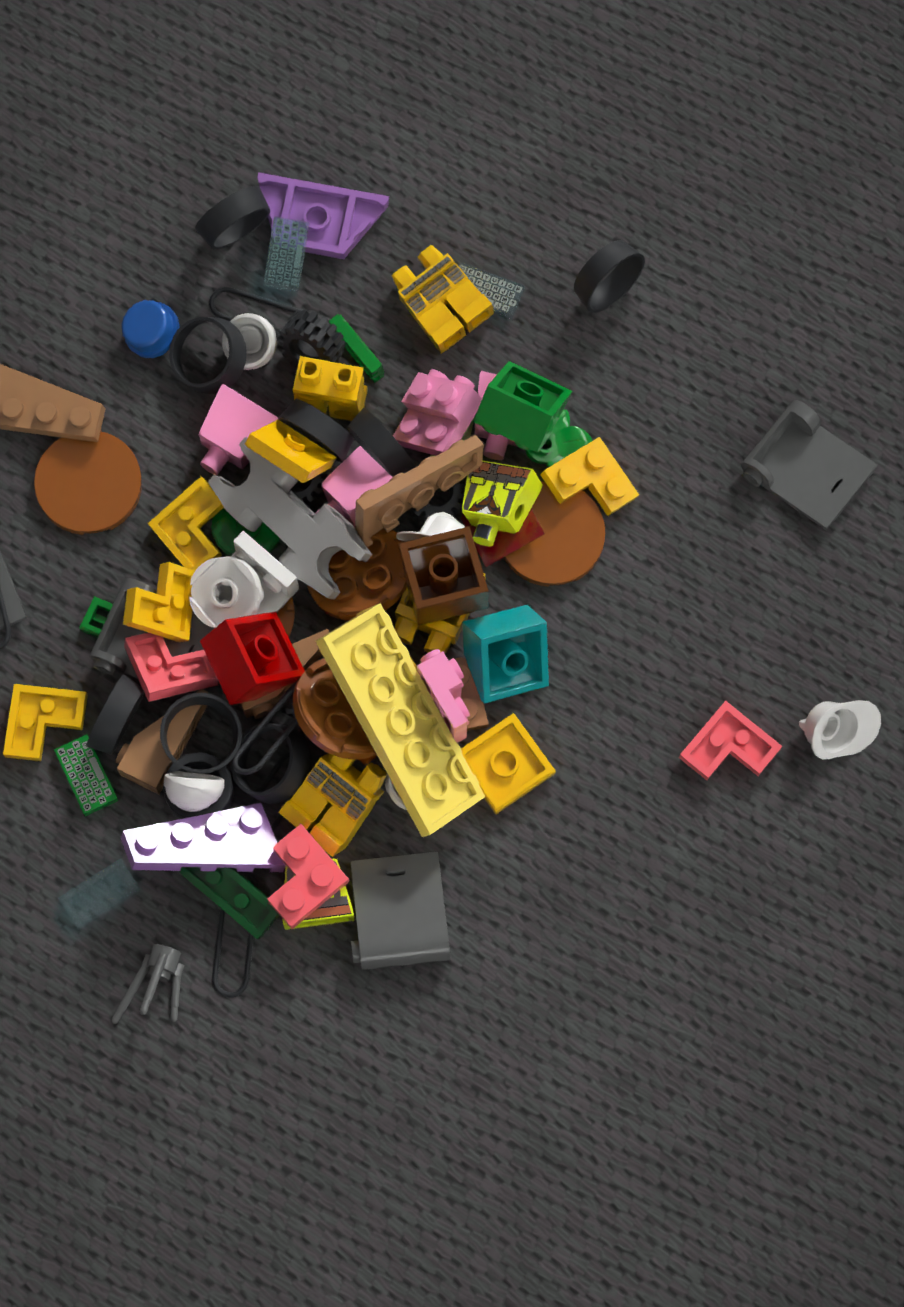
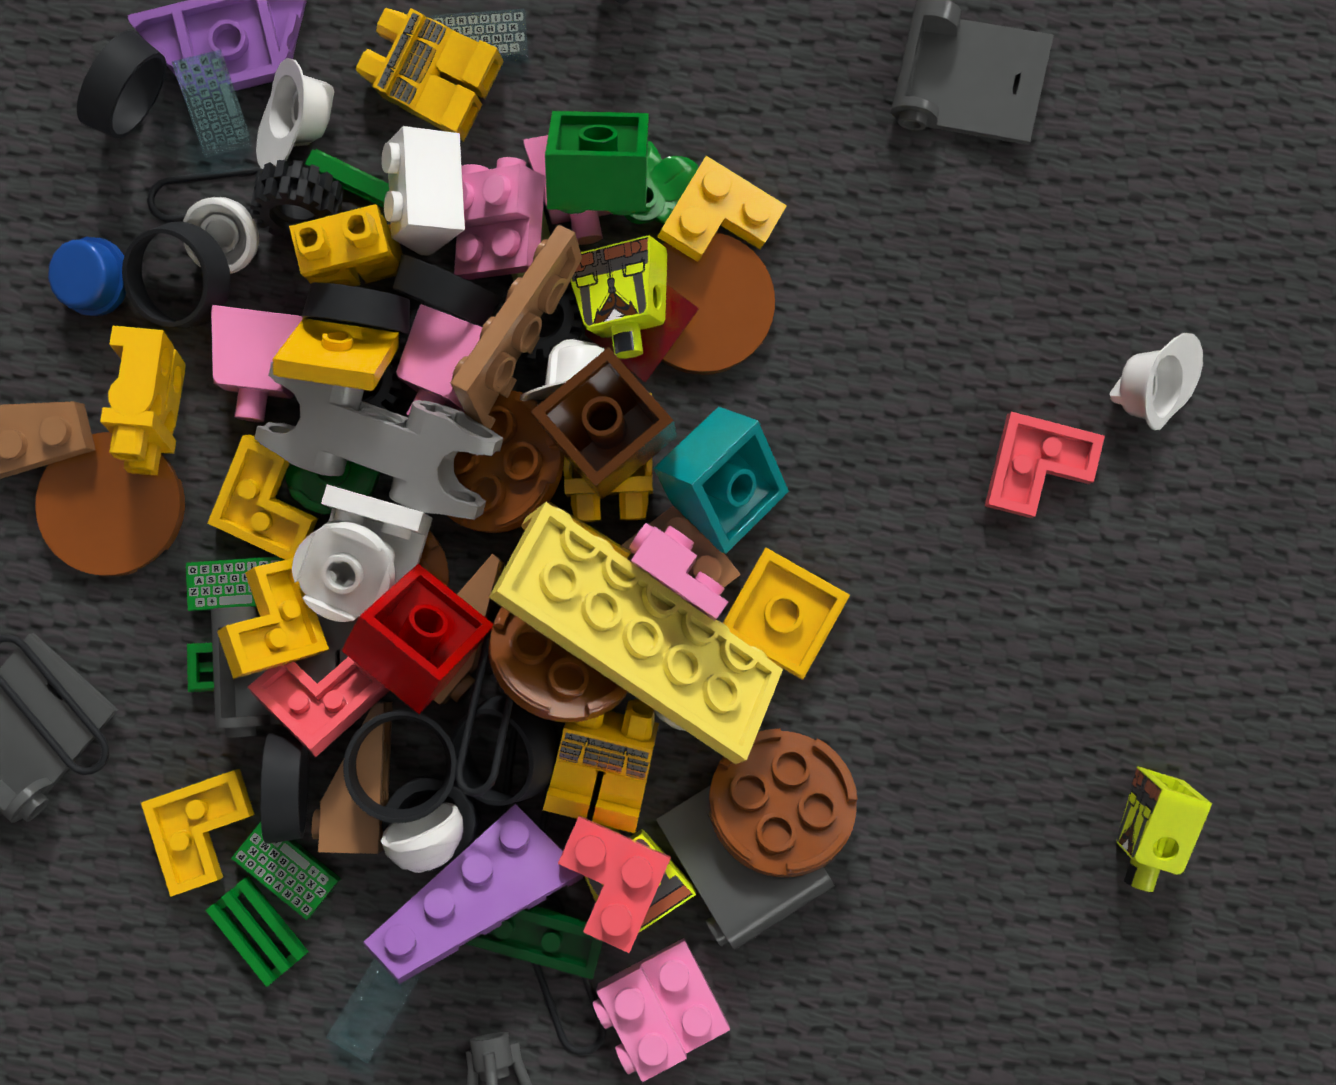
camera: 25 degrees left, 10 degrees up
(39, 778) = (242, 943): none -> green tile
(134, 564) = (221, 583): none -> tile
(149, 422) = (143, 398): none -> yellow hips
(291, 987) = (659, 1010): none -> bright pink plate
(336, 285) = (294, 114): none -> white piece
(398, 372) = (424, 188): none -> white slope
(442, 885) = (784, 805): none -> dark orange tile
(702, 1011) = (1160, 826): none -> neon yellow torso

